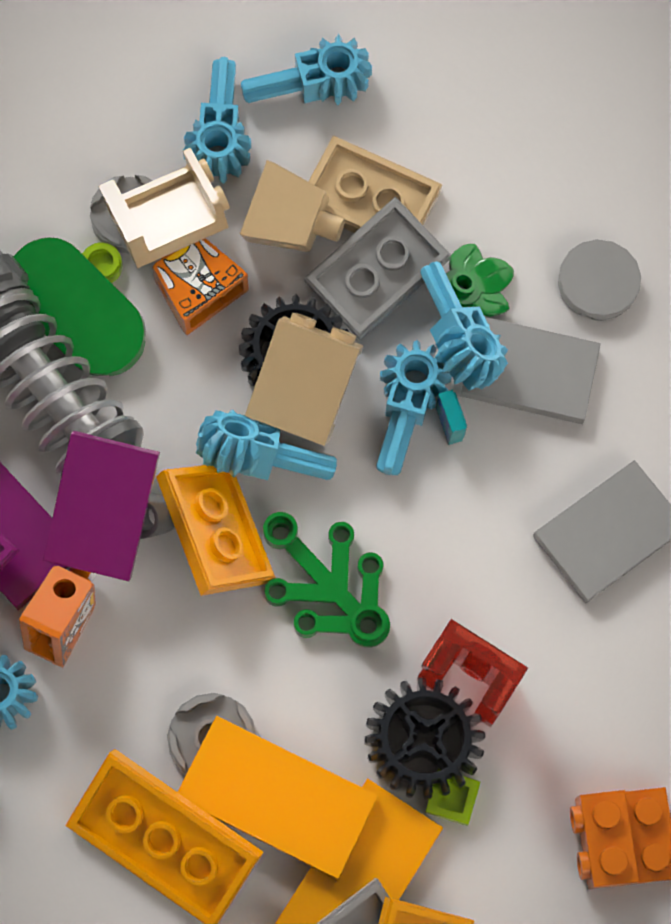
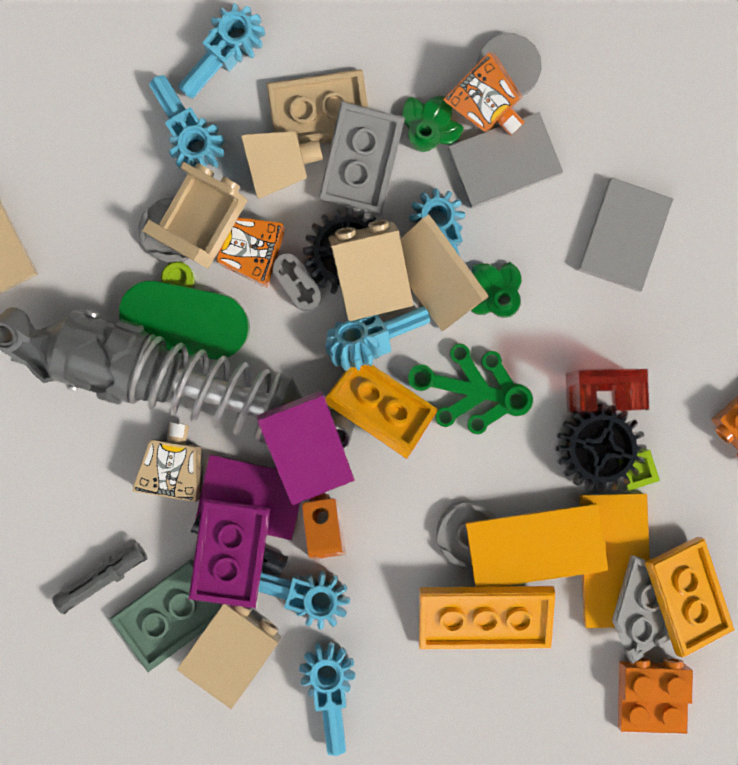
camera: 30 degrees left, 15 degrees up
(212, 347) = (303, 277): none -> light grey beam
(373, 431) = (439, 274): none -> tan tile
(424, 488) = (498, 284): none -> green plate
(451, 416) = (478, 228): teal tile -> none
(462, 335) = (453, 170): medium azure gear -> none
(553, 289) = (487, 96): none -> torso

